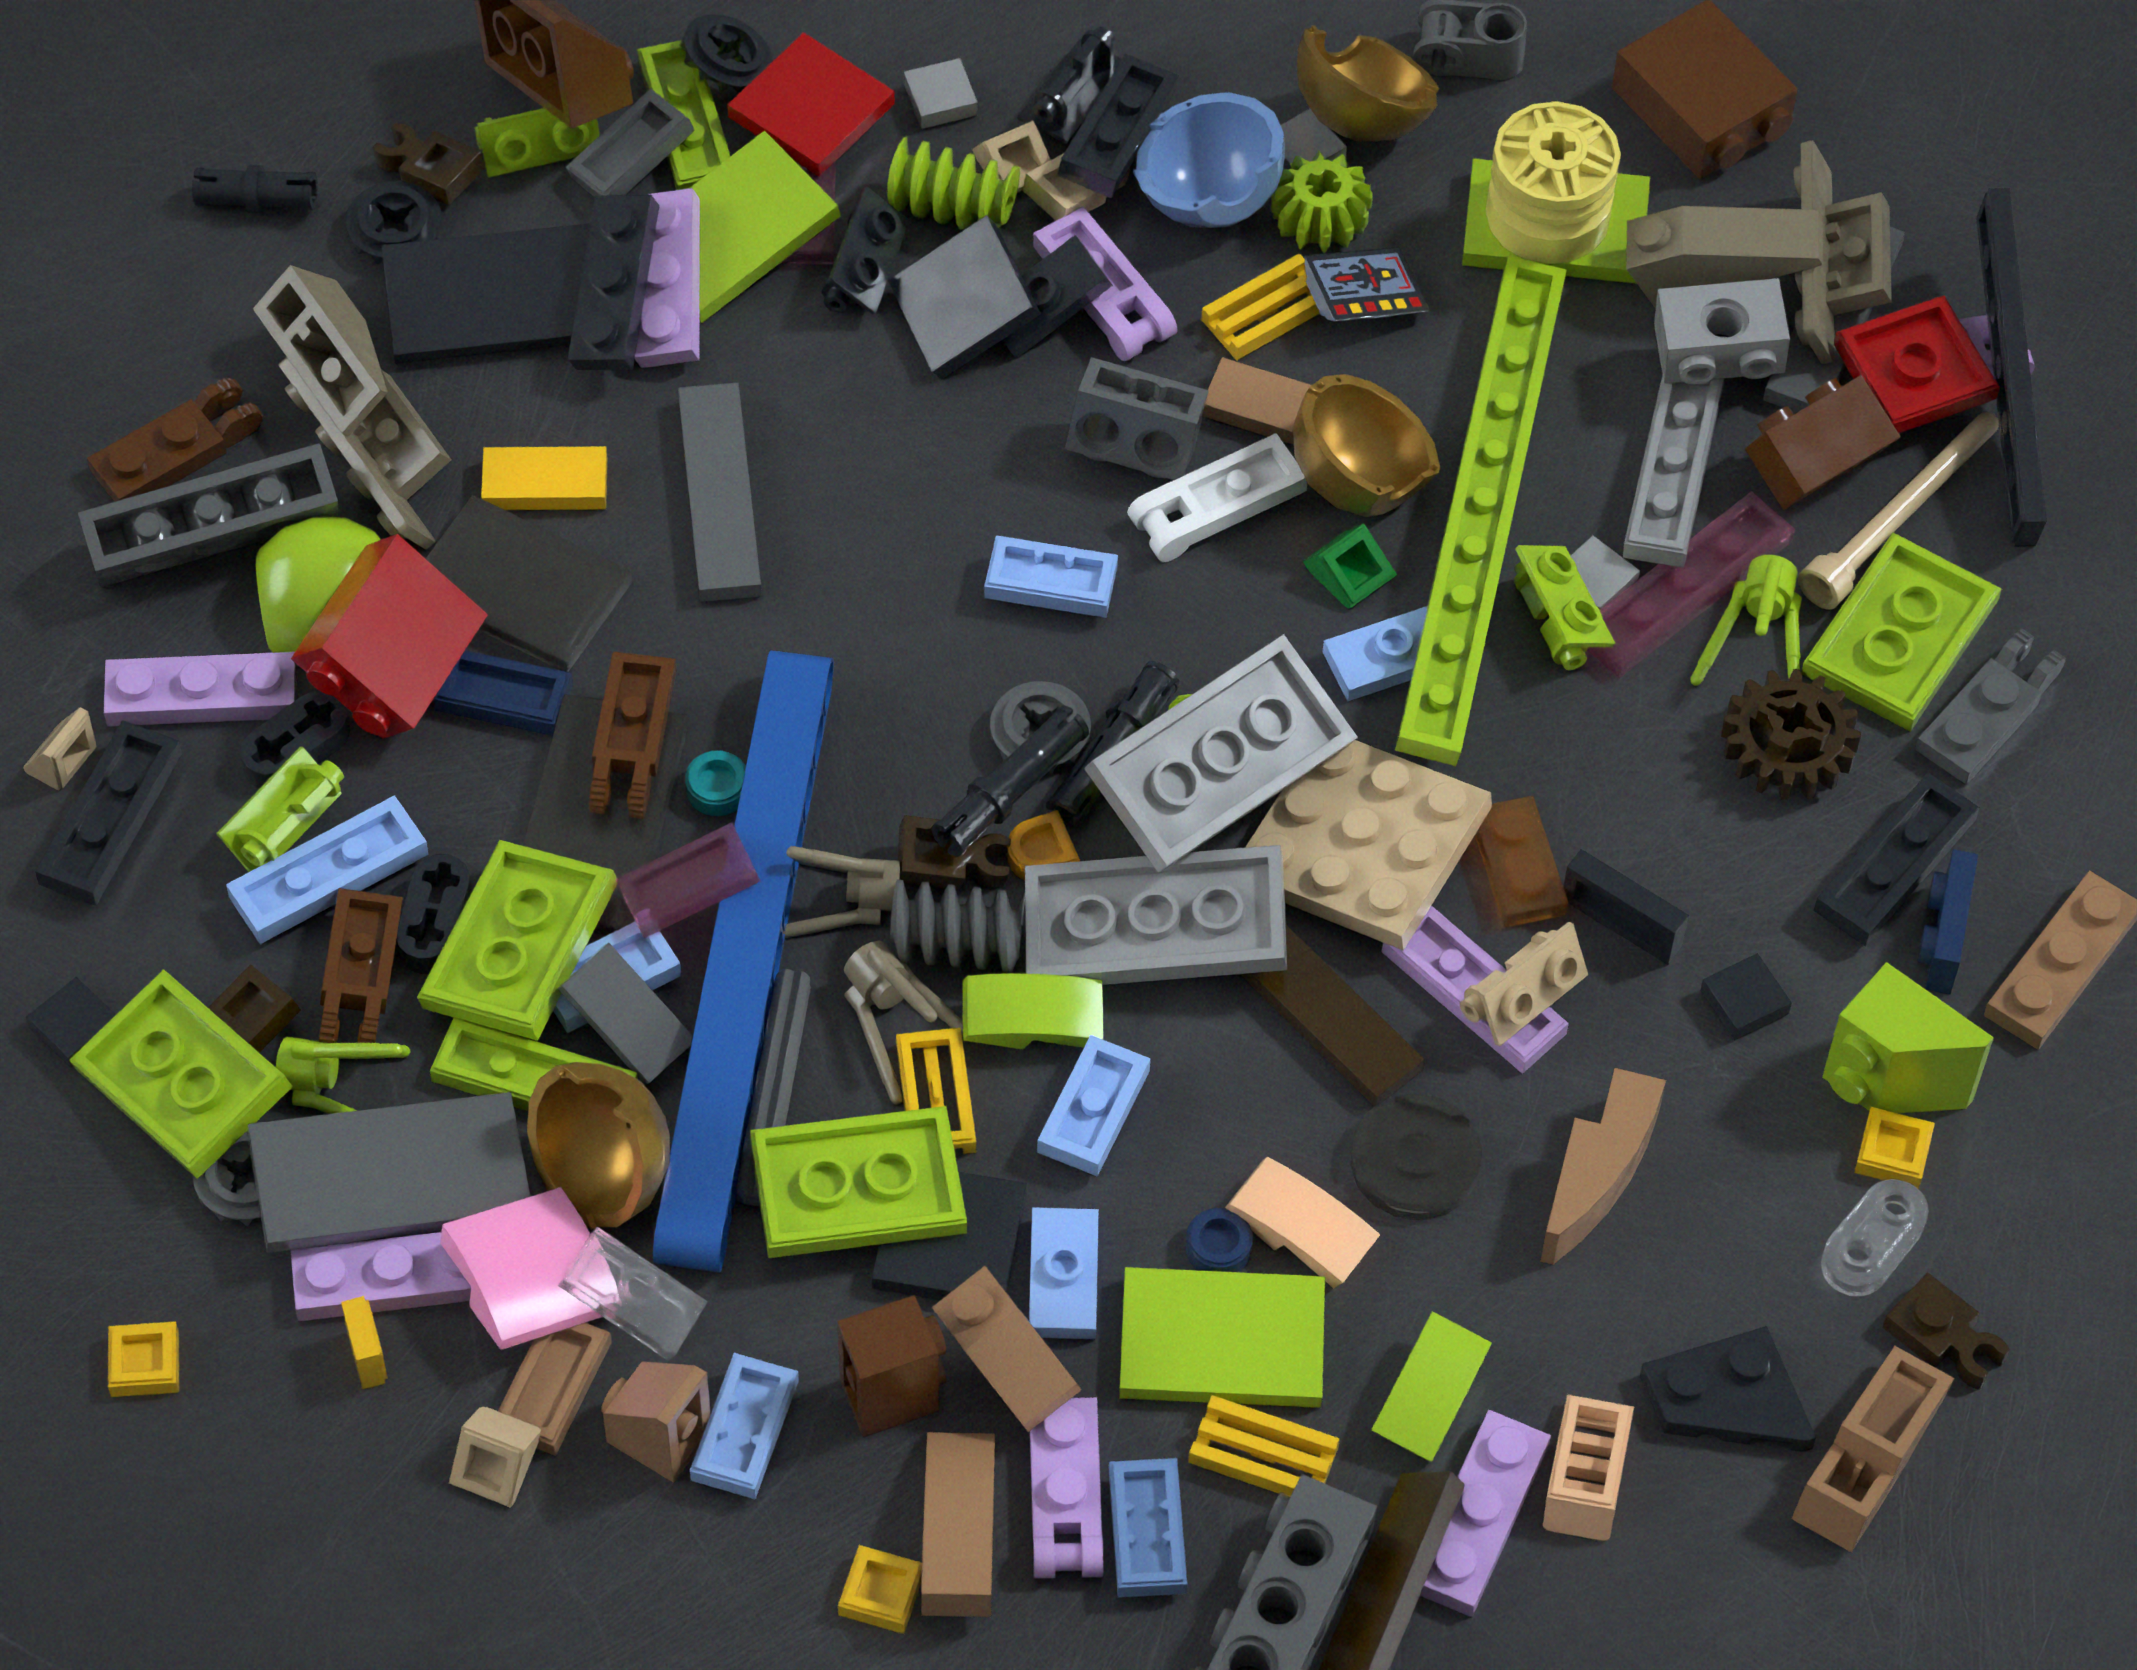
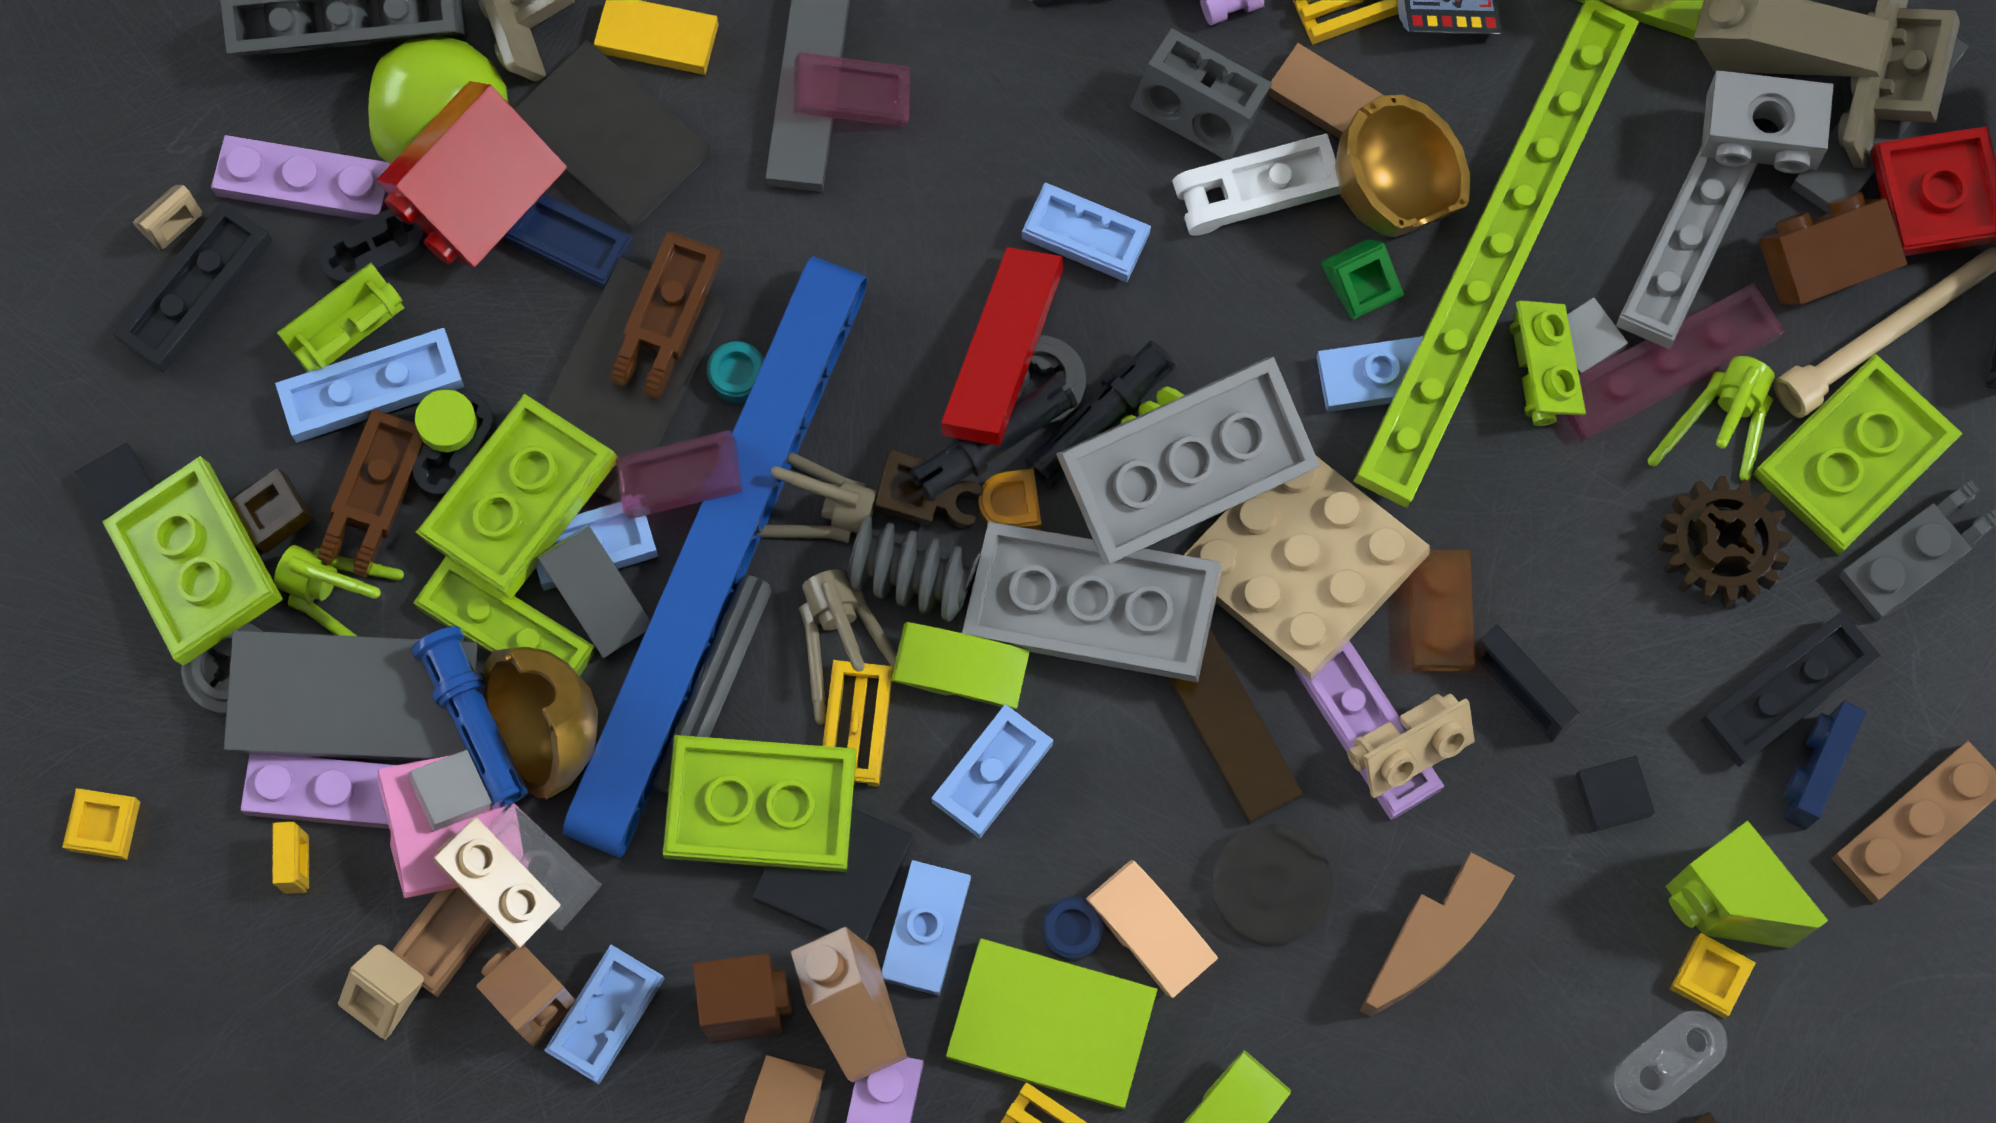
camera: 15 degrees right, 15 degrees up
(422, 881) = (445, 420): none -> lime tile
(510, 1134) = (460, 692): none -> blue pin
(525, 1228) = (449, 790): none -> light grey tile
(612, 1312) = (496, 881): none -> hinge
(768, 487) = (851, 89): none -> clear pink tile
(996, 693) = (1002, 346): none -> red tile

